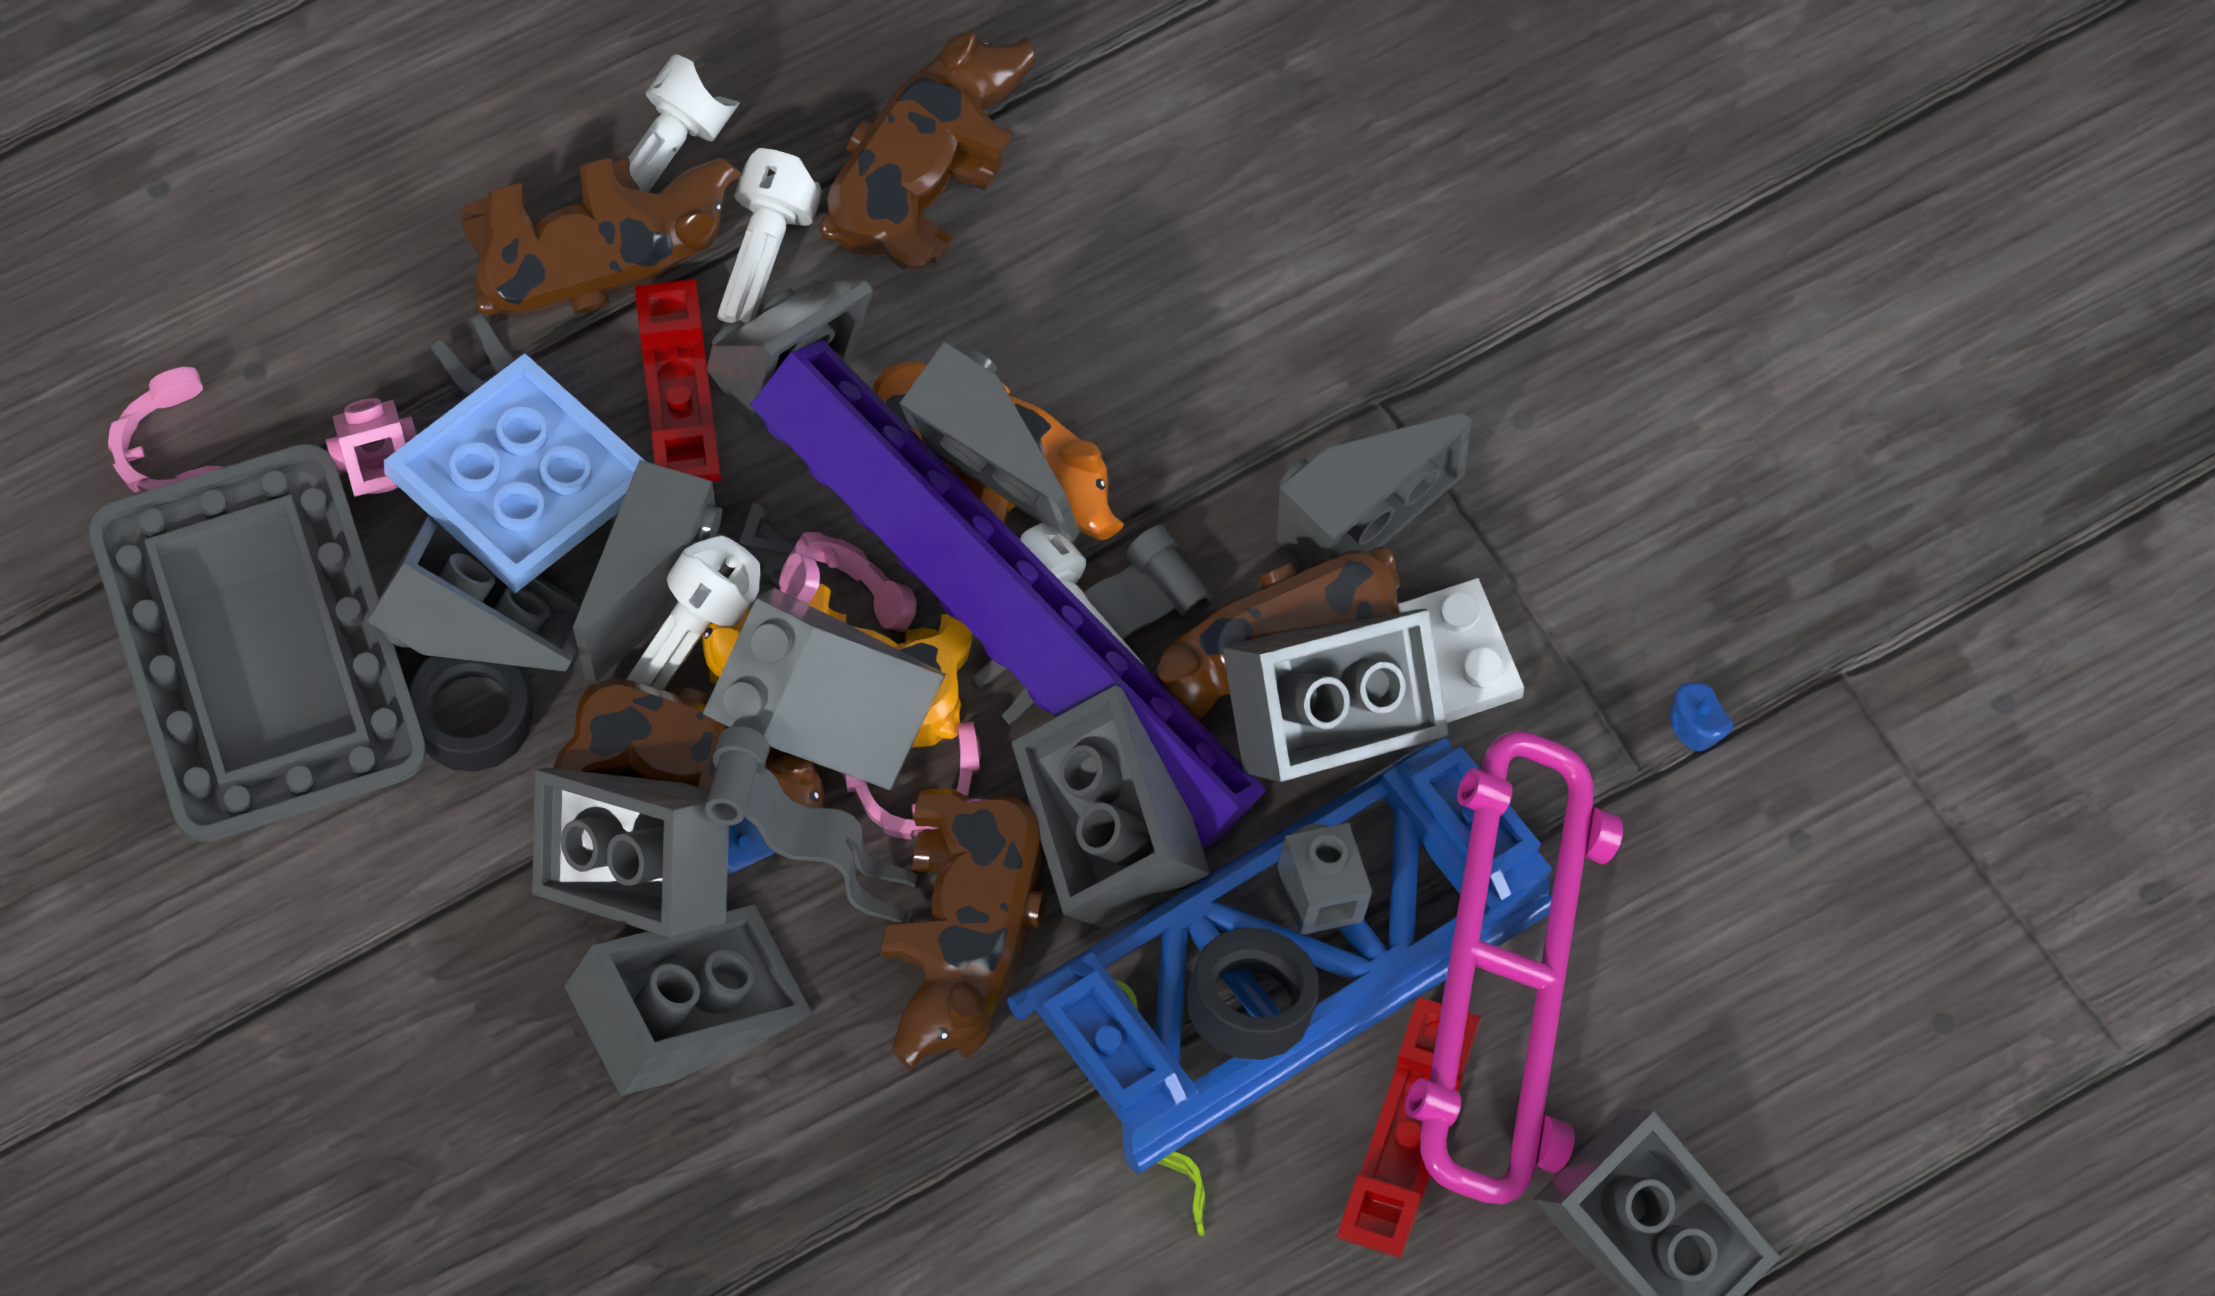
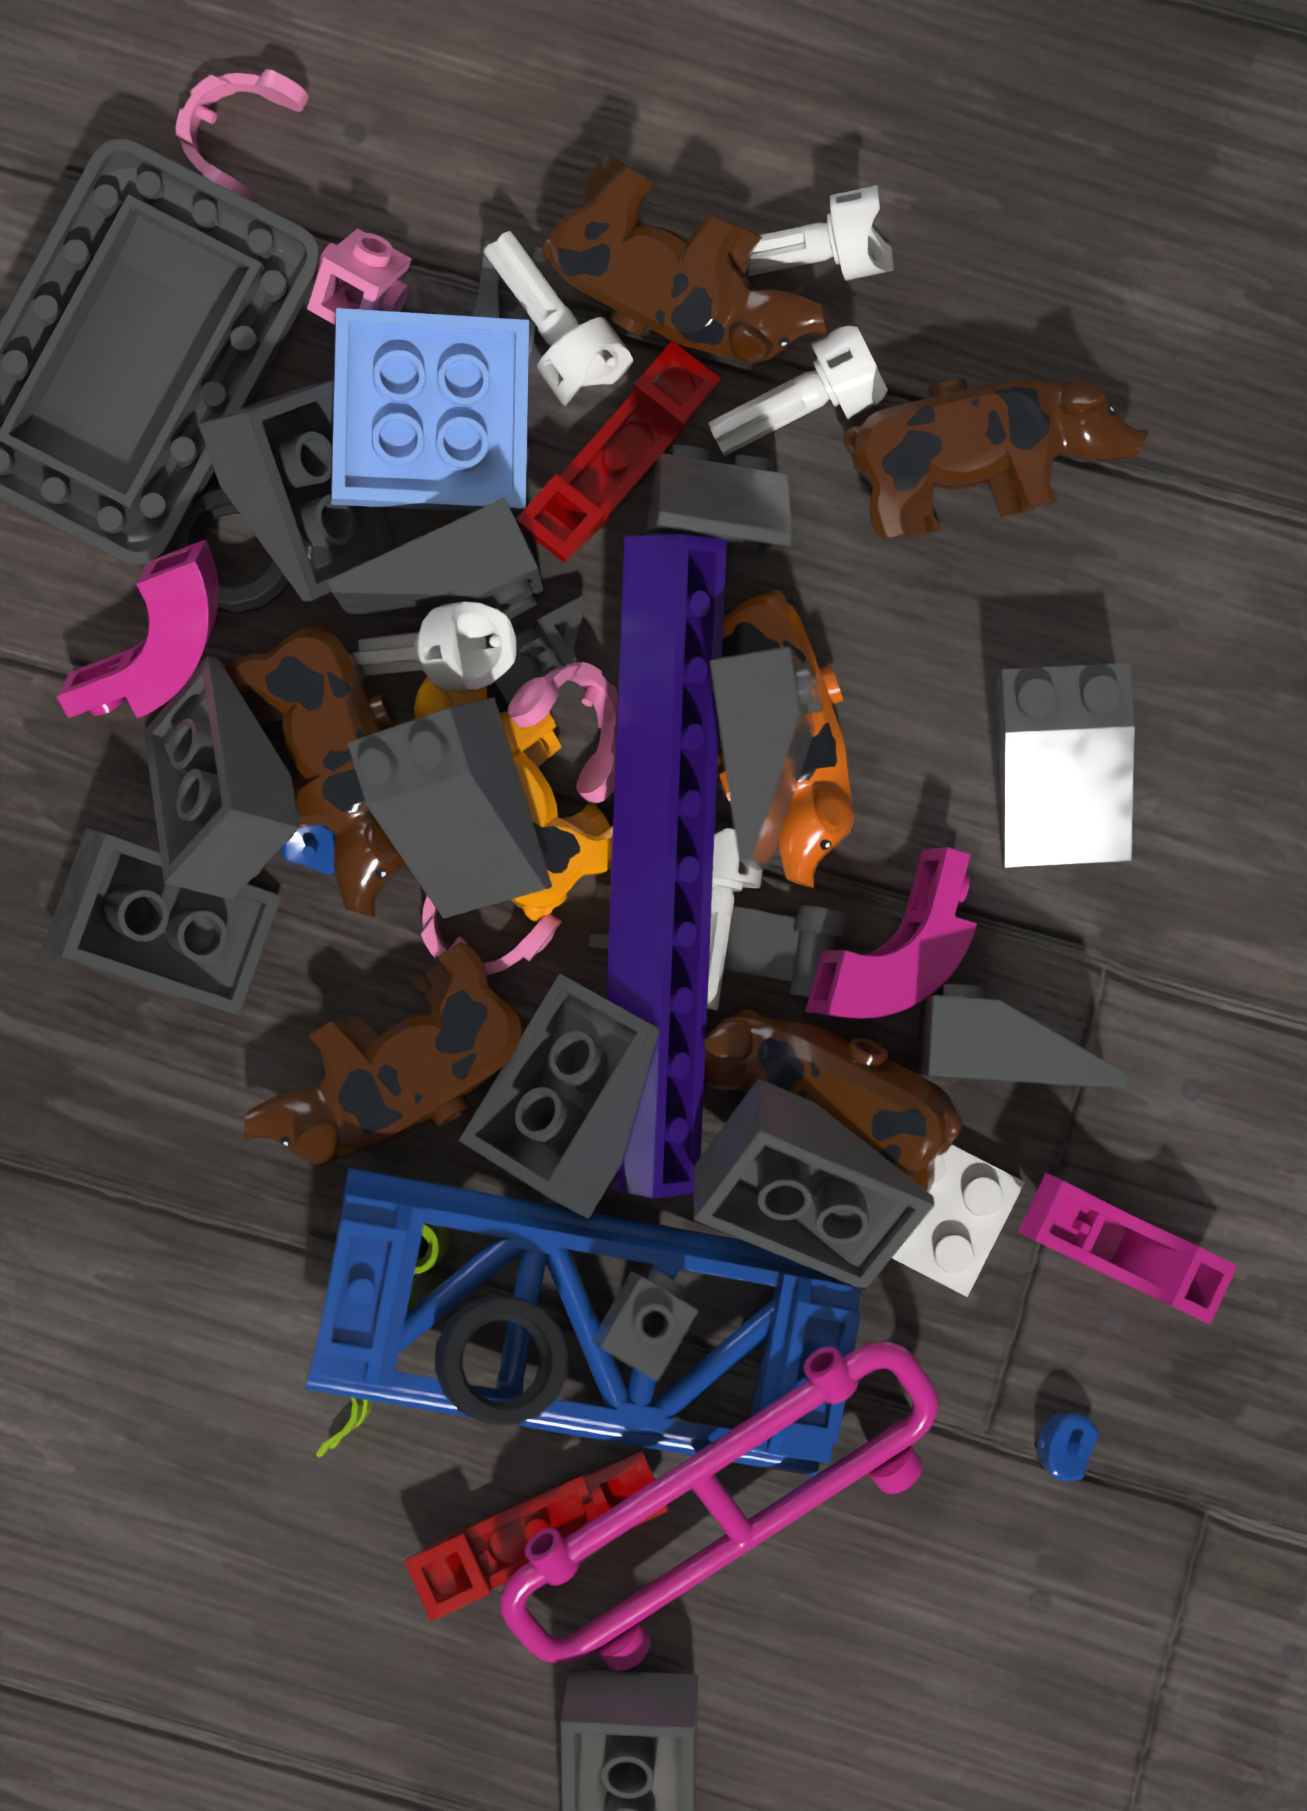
camera: 50 degrees right, 20 degrees up
(498, 798) = (182, 611): none -> dark pink arch
(576, 350) = (577, 352): none -> white piece
(749, 790) = (332, 886): dark grey flag -> none
(1202, 294) = (1065, 764): none -> slope
(1242, 499) = (914, 959): none -> dark pink arch
(1593, 550) = (1127, 1248): none -> dark pink arch

